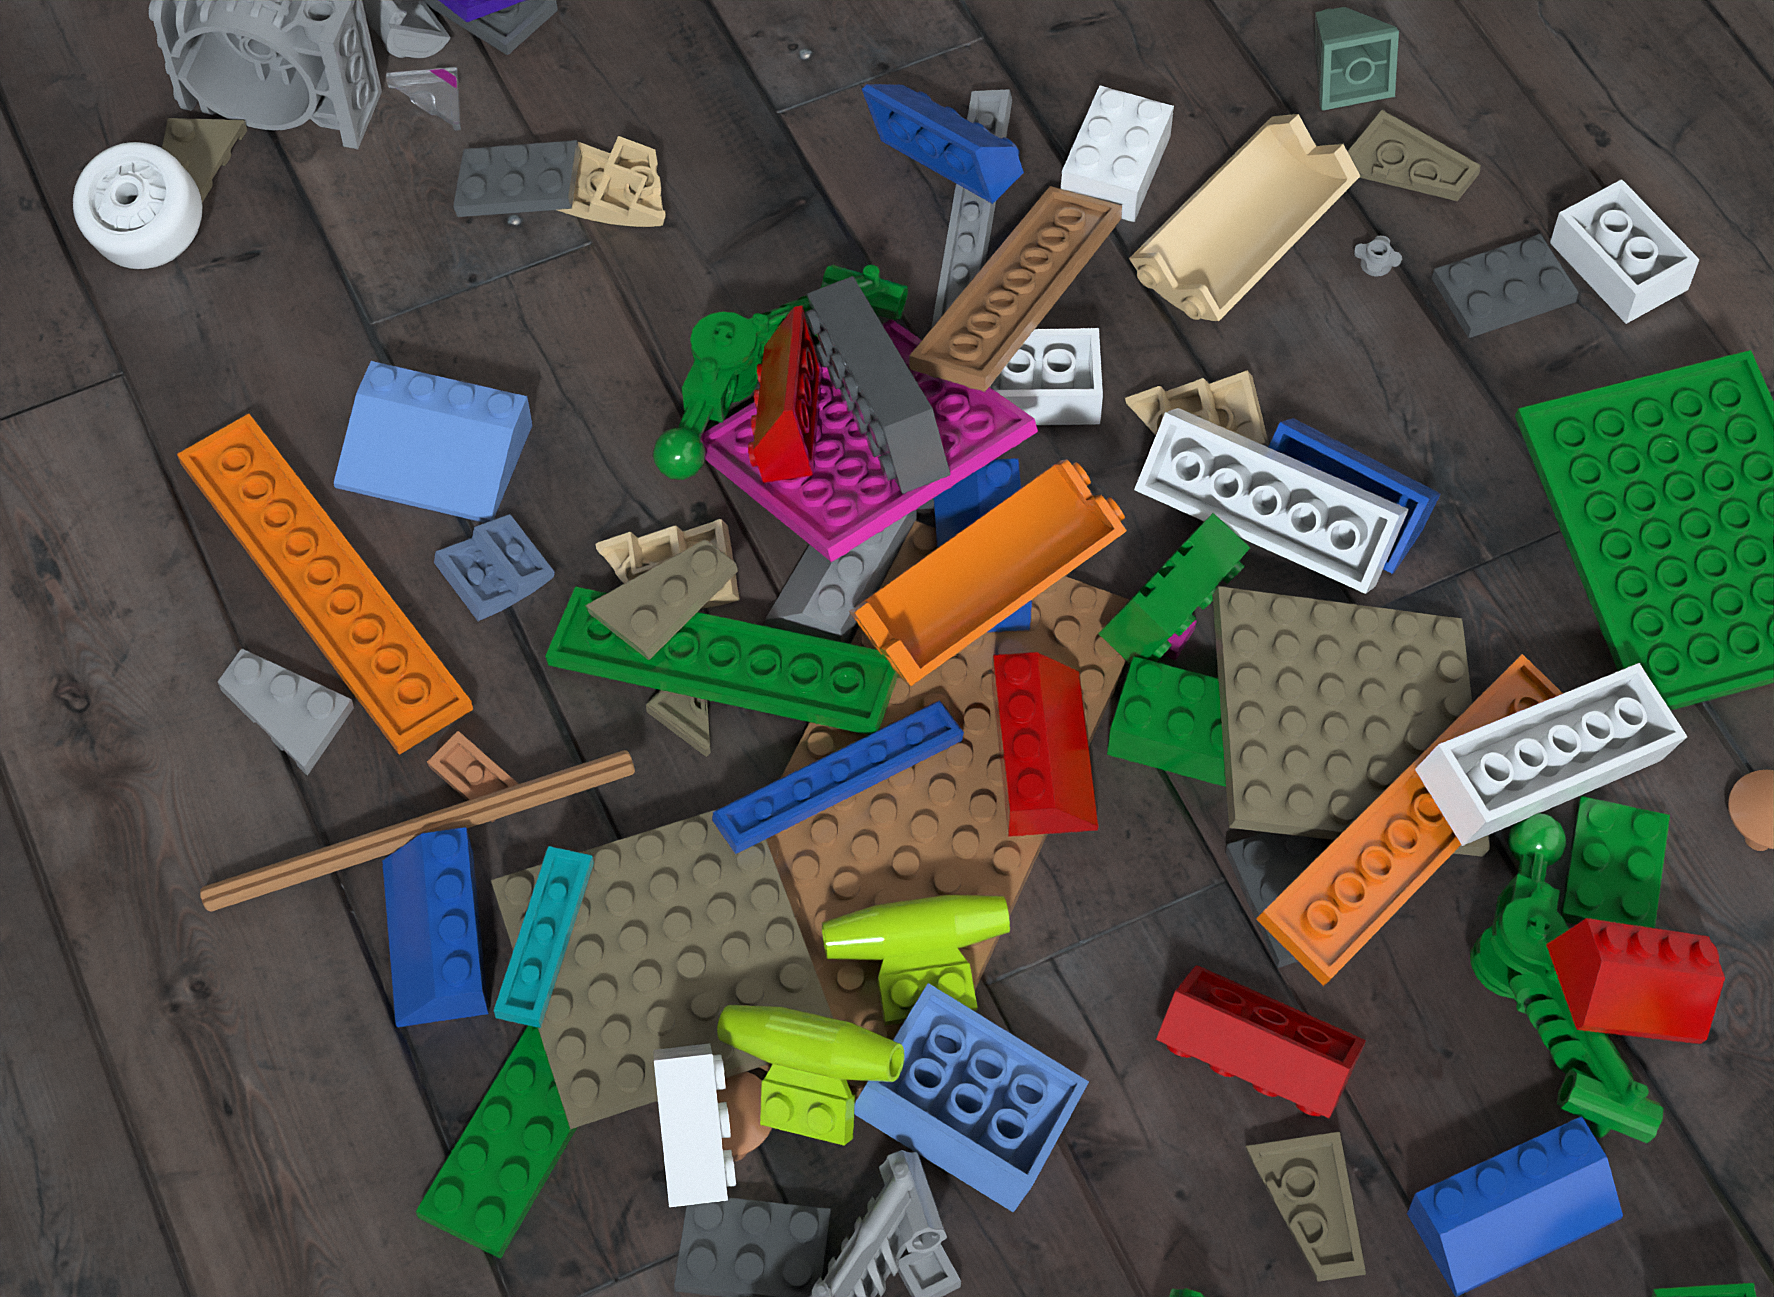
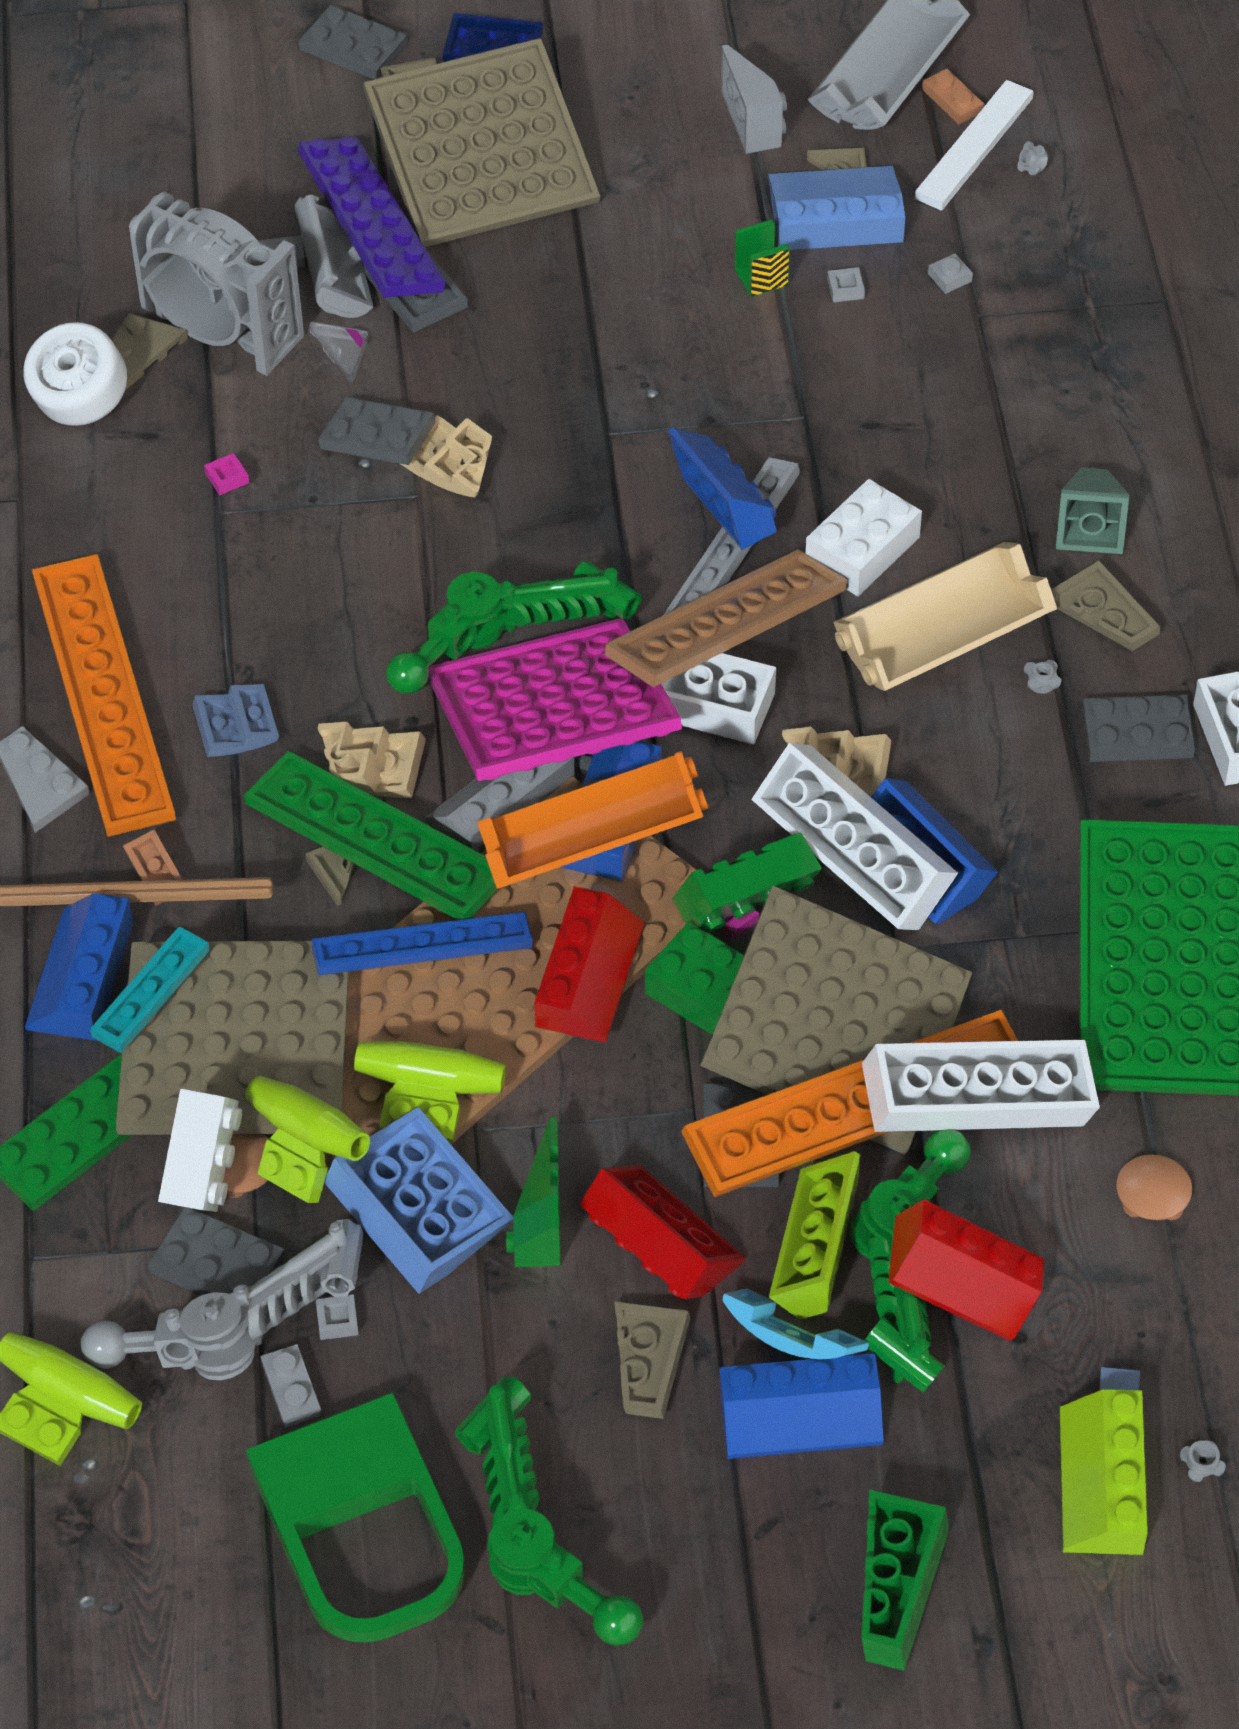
camera: 20 degrees right, 5 degrees down
(362, 276) = (226, 474): none -> dark pink plate
(432, 442) = (227, 613): medium blue slope -> none
(665, 598) = (348, 776): dark tan wing -> none
(786, 403) = (503, 656): red slope -> none
(877, 386) = (568, 659): dark grey brick -> none
(1121, 1072) = (537, 1214): none -> green wedge
(1411, 1107) = (757, 1316): none -> medium azure slope
(1449, 991) = (815, 1236): none -> lime slope
(1615, 864) = (1007, 1188): green plate -> none

